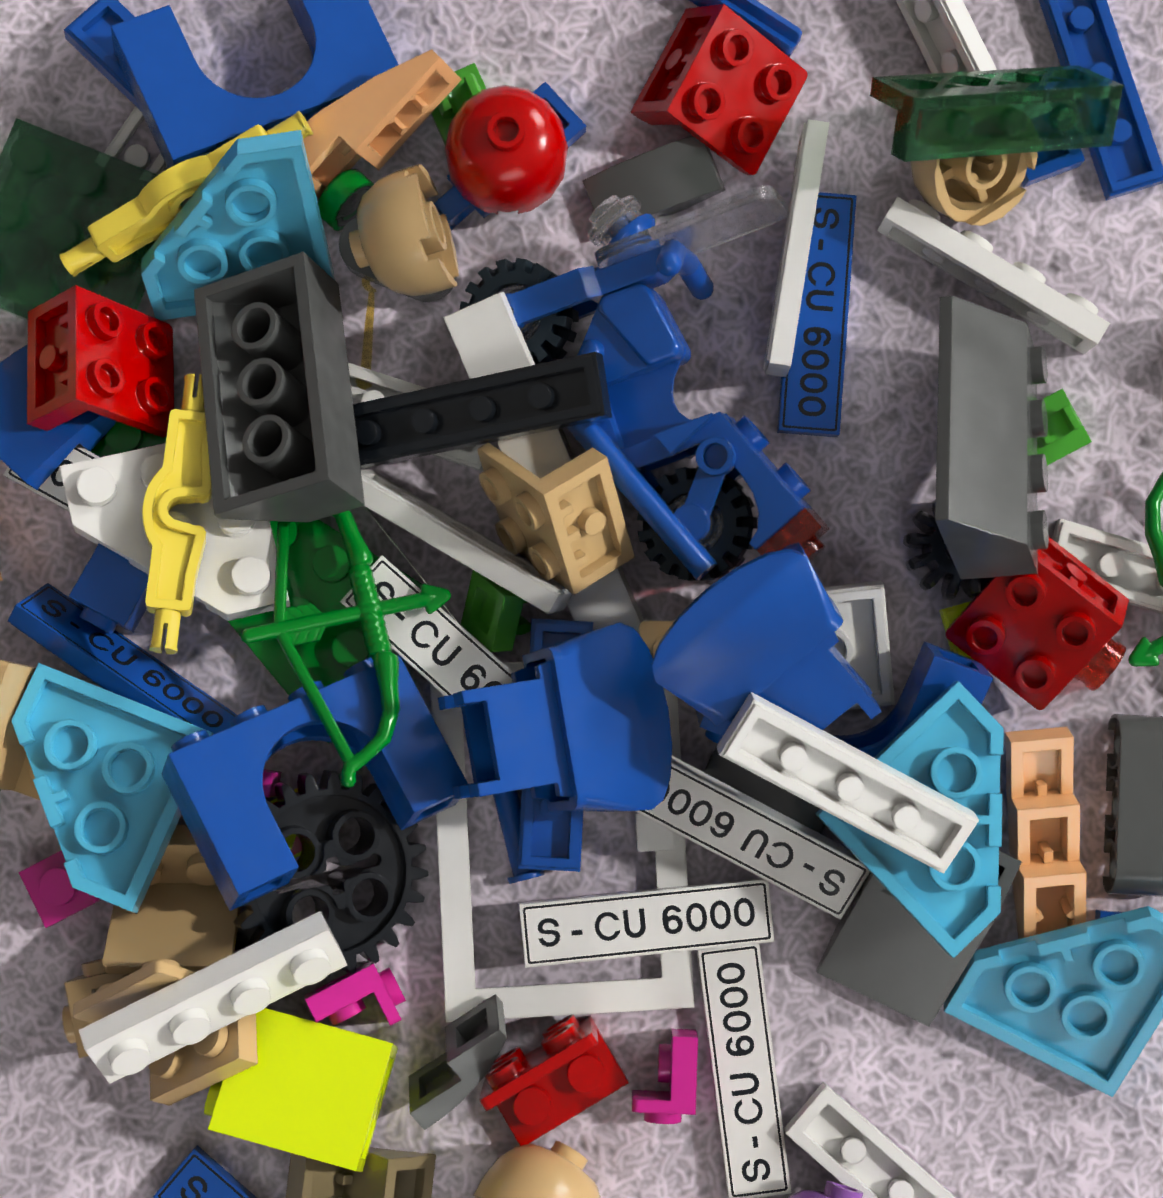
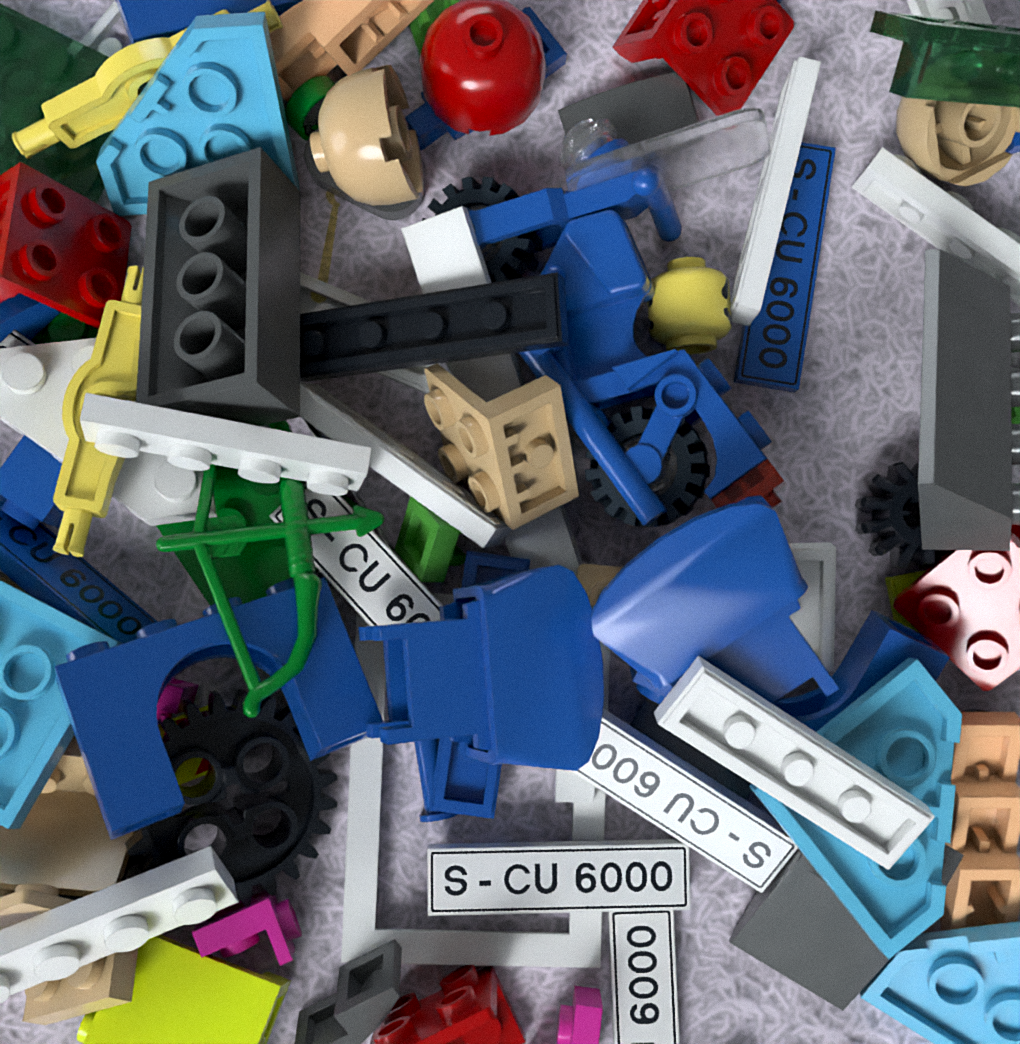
camera: 10 degrees right, 0 degrees up
(276, 536) = (198, 440): none -> white plate
(726, 365) = (690, 306): none -> light yellow head

